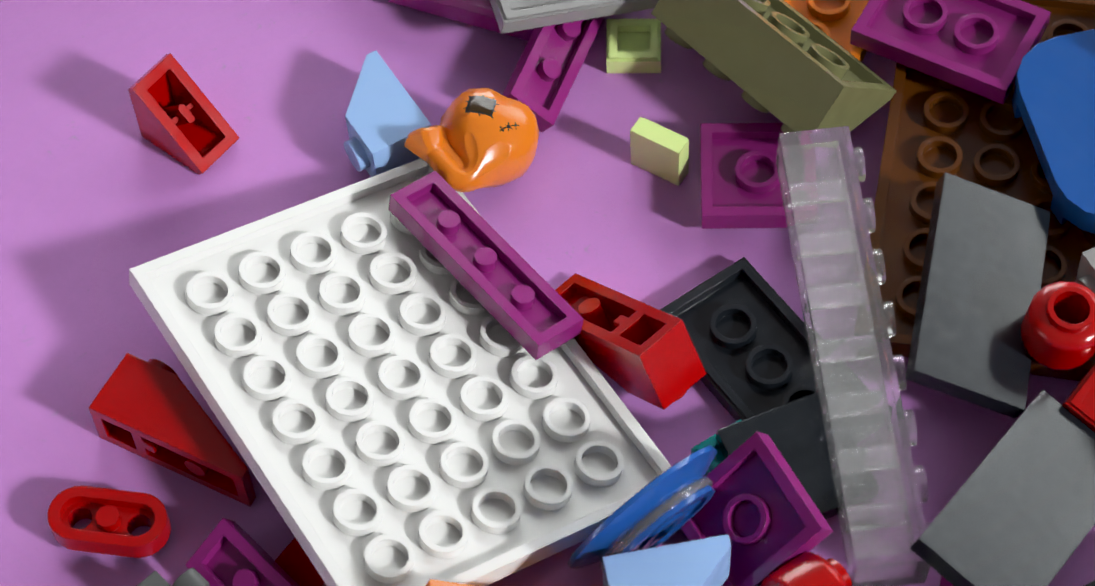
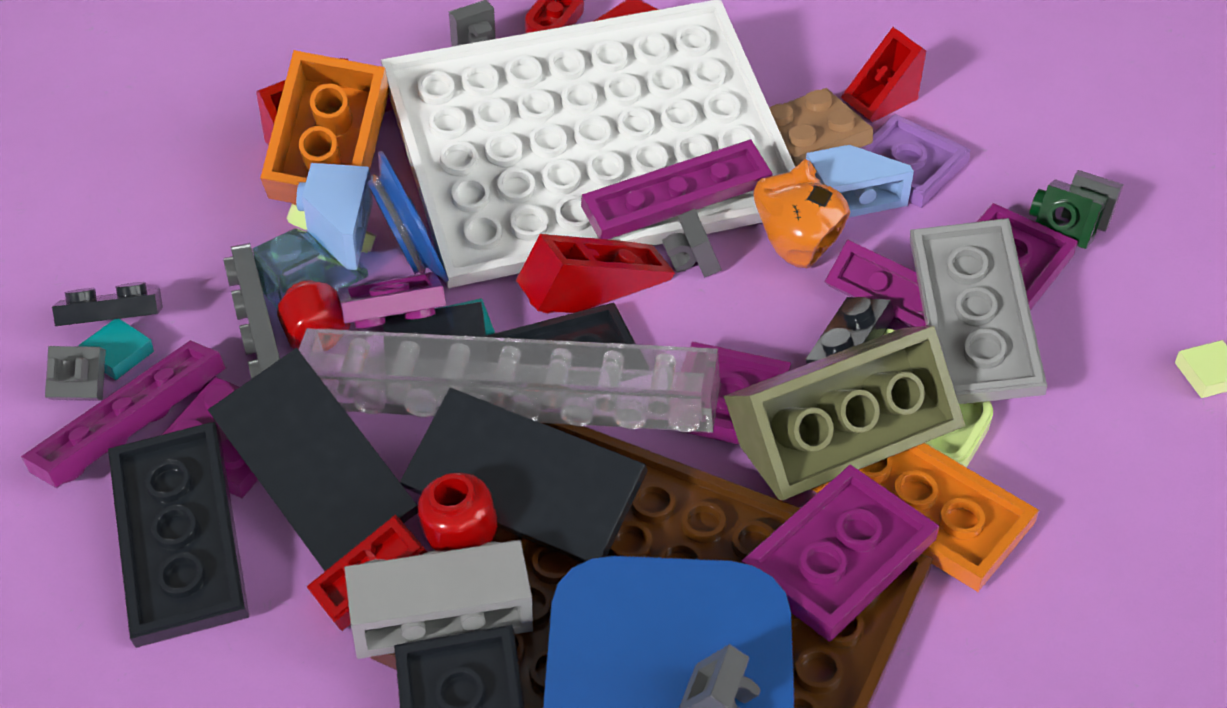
camera: 100 degrees right, 10 degrees down
(285, 168) = (819, 123): none -> medium nougat plate
(302, 89) = (928, 153): none -> medium lavender tile
(543, 248) = (691, 246): none -> dark grey tile
(632, 87) = (853, 324): none -> black plate
(659, 151) = (773, 331): tile -> none

